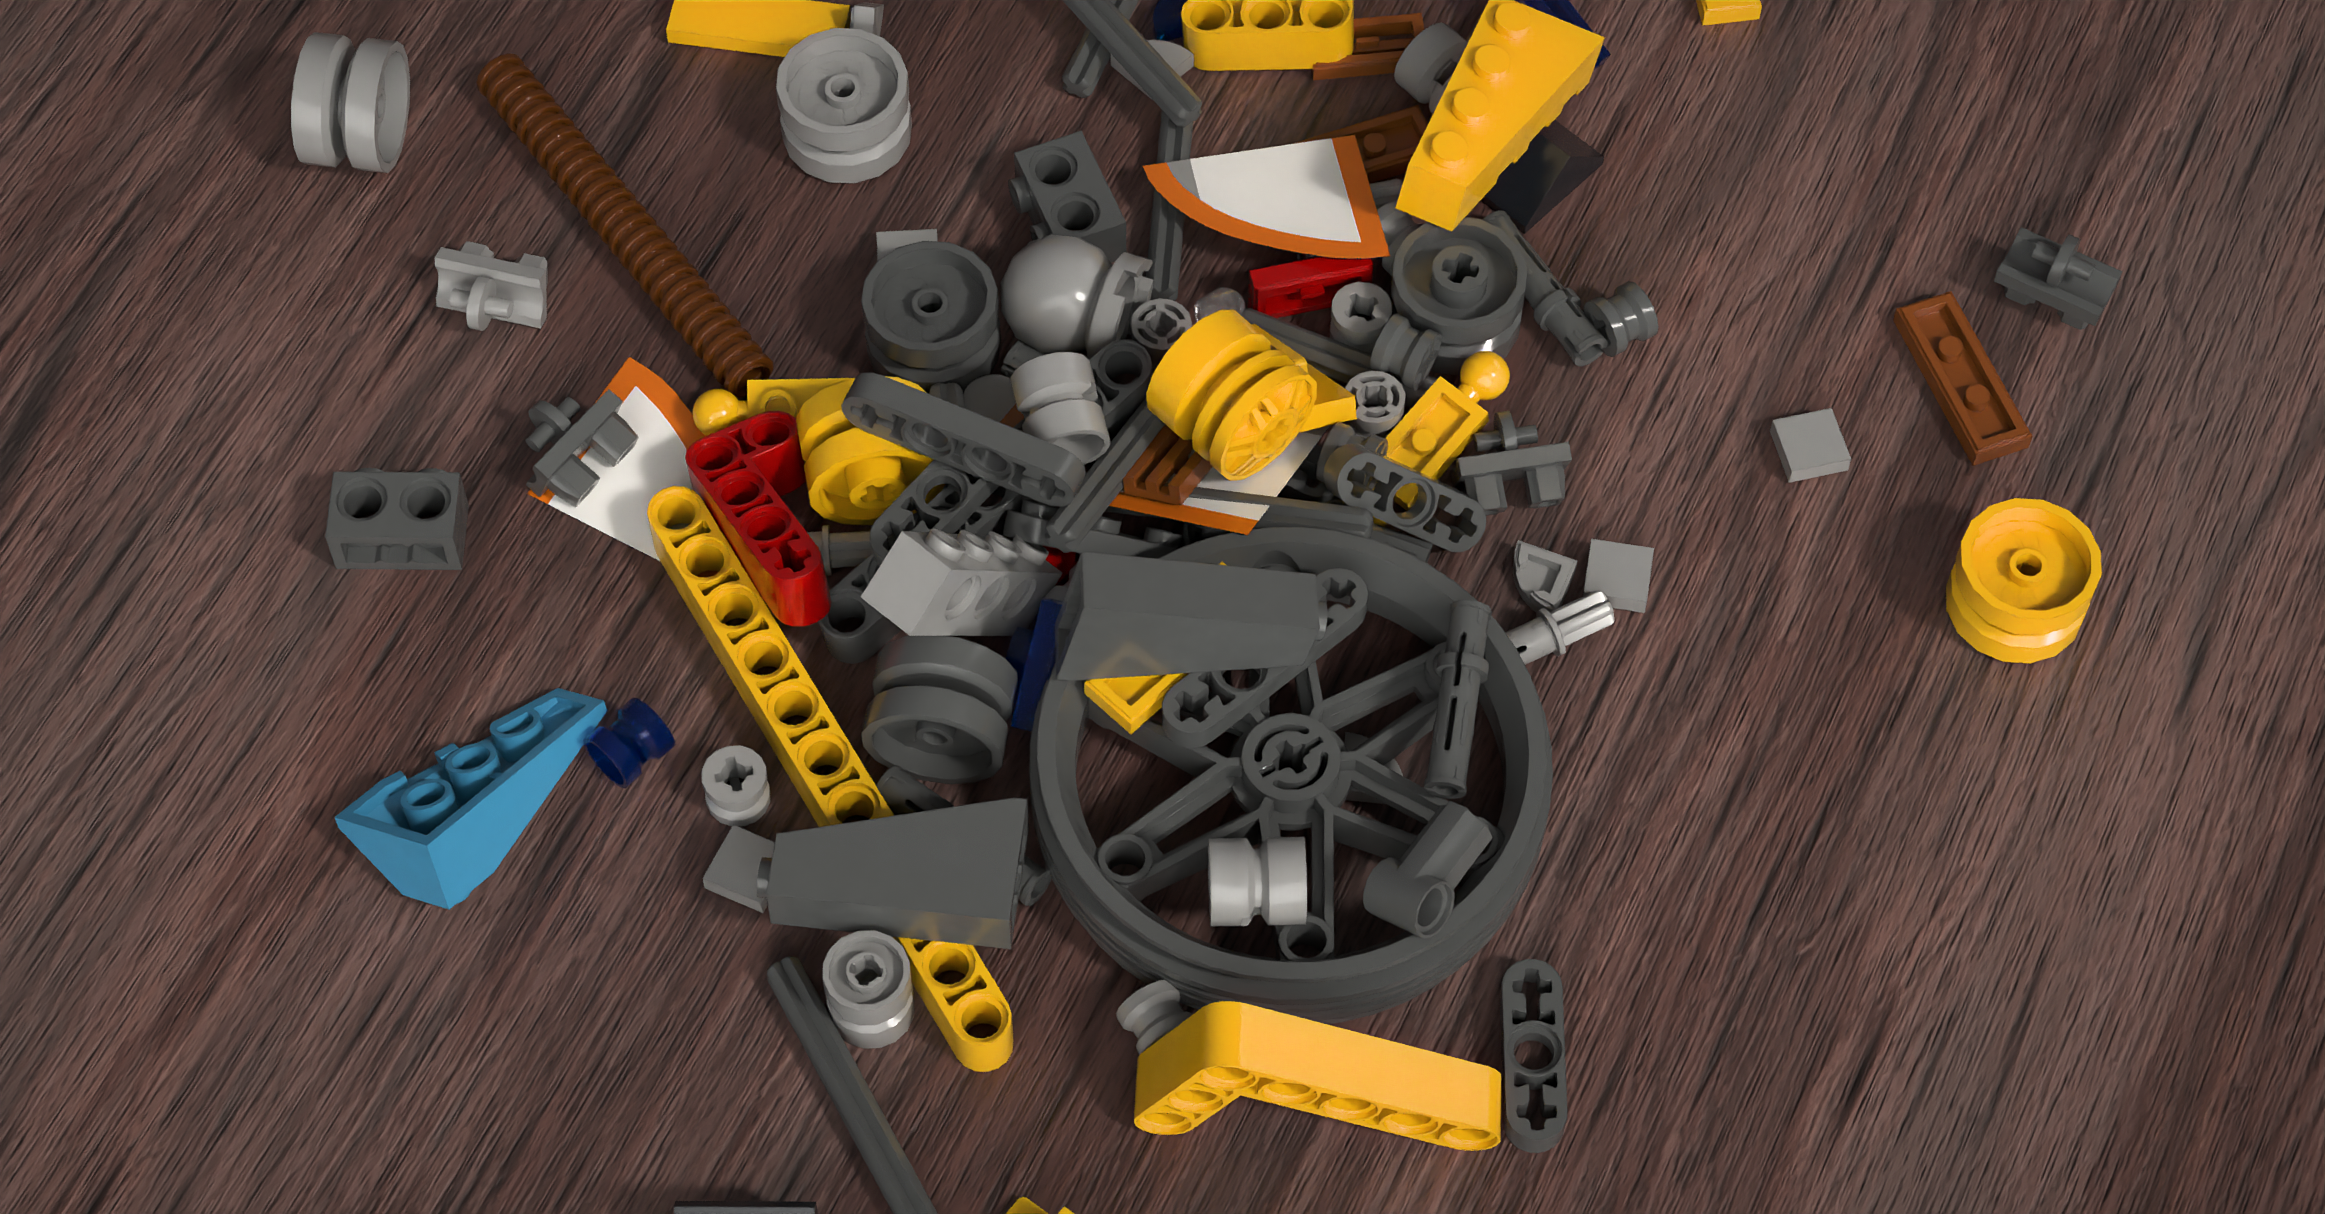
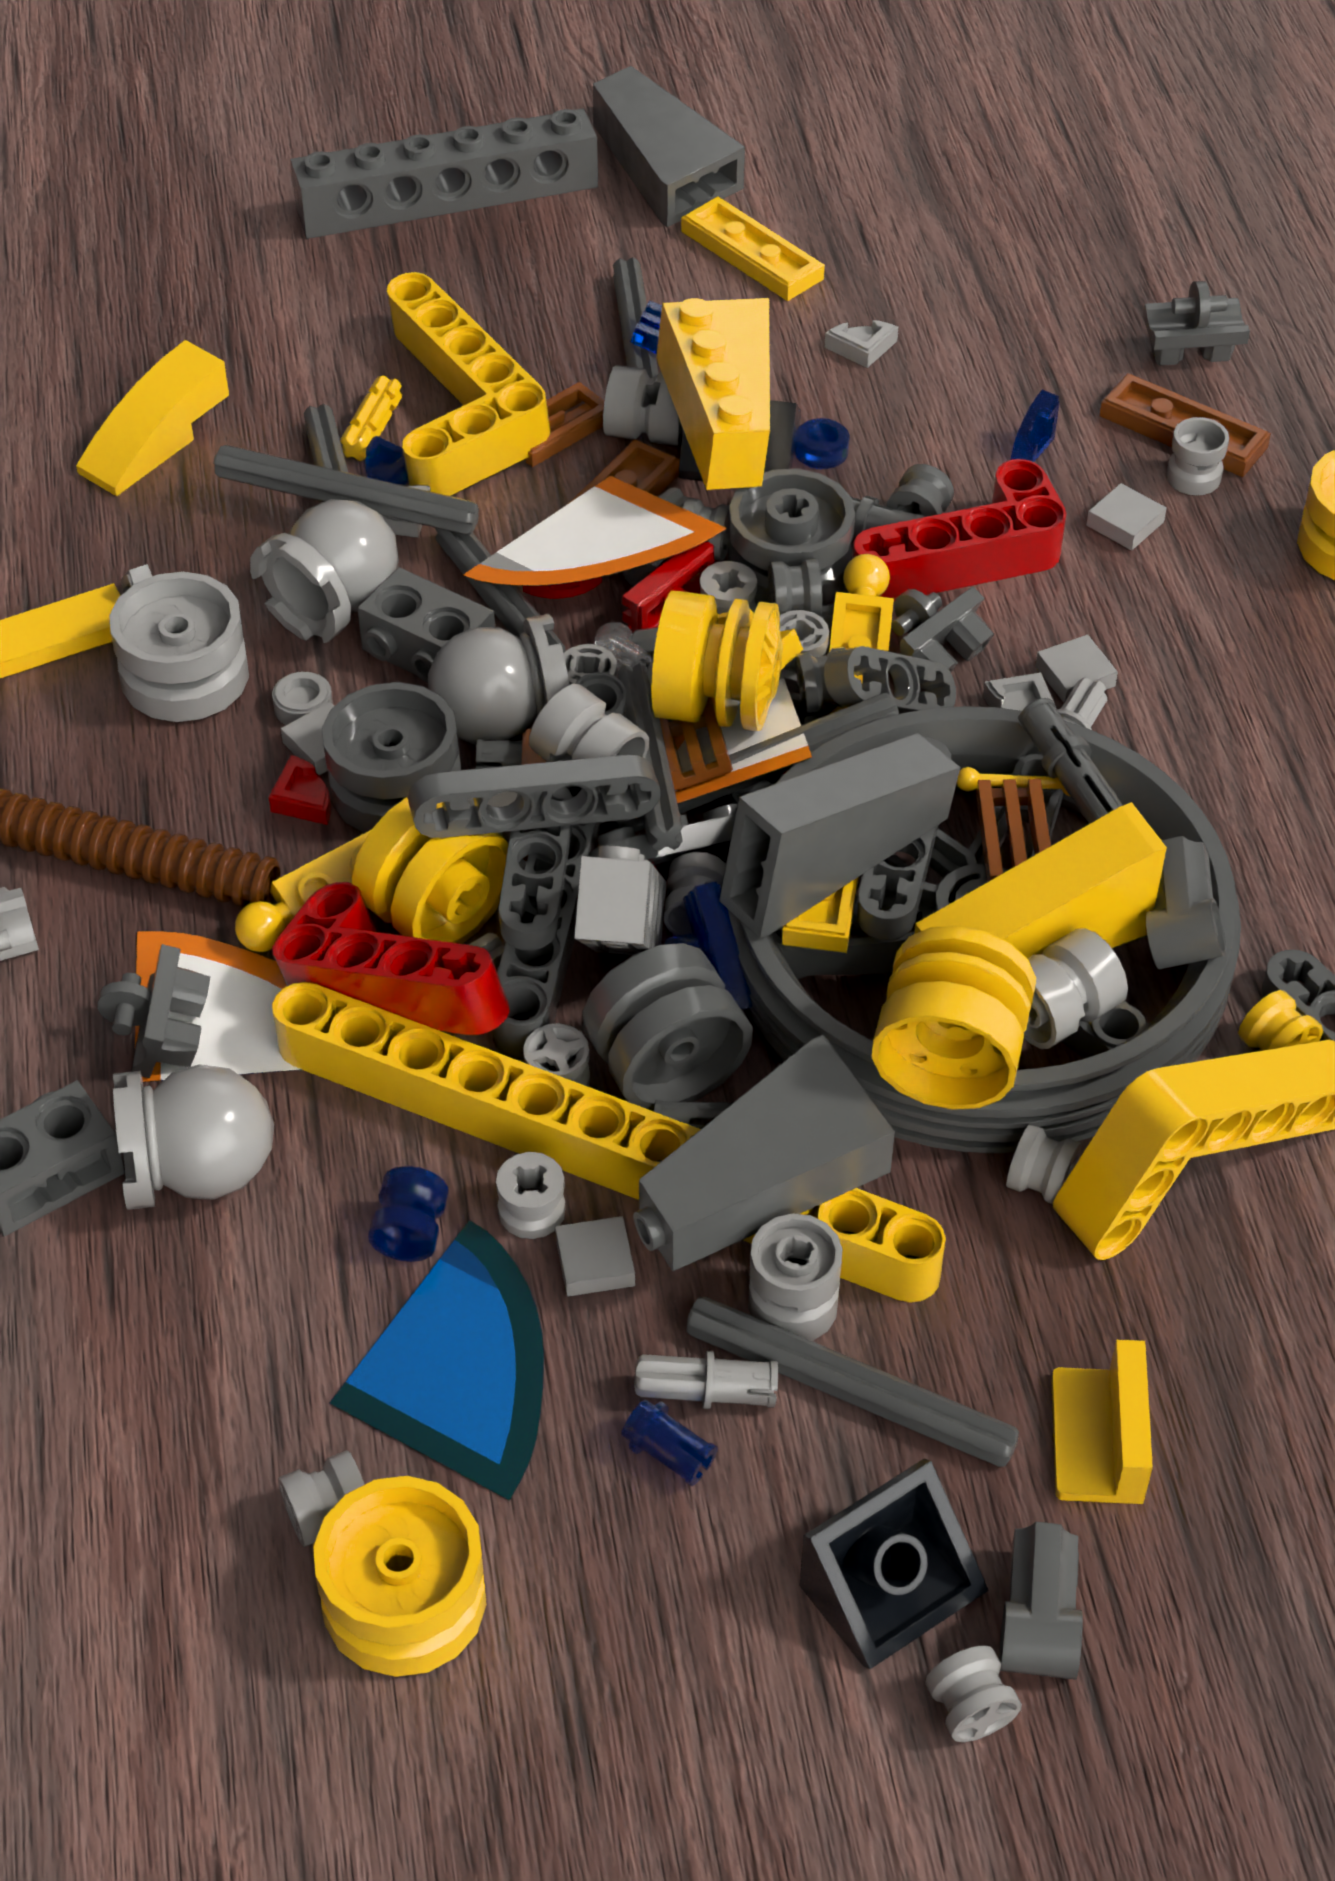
camera: 35 degrees left, 10 degrees down
(385, 937) = (313, 1494): none -> light grey wheel
(385, 1034) = (400, 1575): none -> yellow wheel
(463, 815) = (306, 1350): dark azure wedge -> none
(510, 572) = (194, 1133): none -> light grey tile
(584, 894) = (460, 1367): none -> clear blue sticker
(673, 1058) = (668, 1441): none -> clear blue pin
(743, 1029) = (707, 1380): none -> light grey axle
(842, 669) = (559, 1047): none -> light grey wheel
(843, 303) = (301, 793): none -> red tile
(922, 207) = (299, 695): none -> light grey tile
(1027, 93) = (325, 566): none -> light grey tile
(1118, 854) = (954, 1018): none -> yellow wheel
(1341, 802) = (1090, 880): none -> yellow slope
(1372, 636) = (969, 777): none -> yellow hinge
(1388, 672) = (1011, 799): none -> dark orange tile
(1468, 1028) = (1278, 1024): none -> yellow wheel
(1547, 364) = (977, 544): none -> red beam
(1593, 204) = (822, 443): none -> clear blue tile
(1729, 112) = (861, 343): none -> light grey tile
(1800, 305) = (1037, 427): none -> clear blue tile
(1929, 421) = (1197, 456): none -> light grey wheel

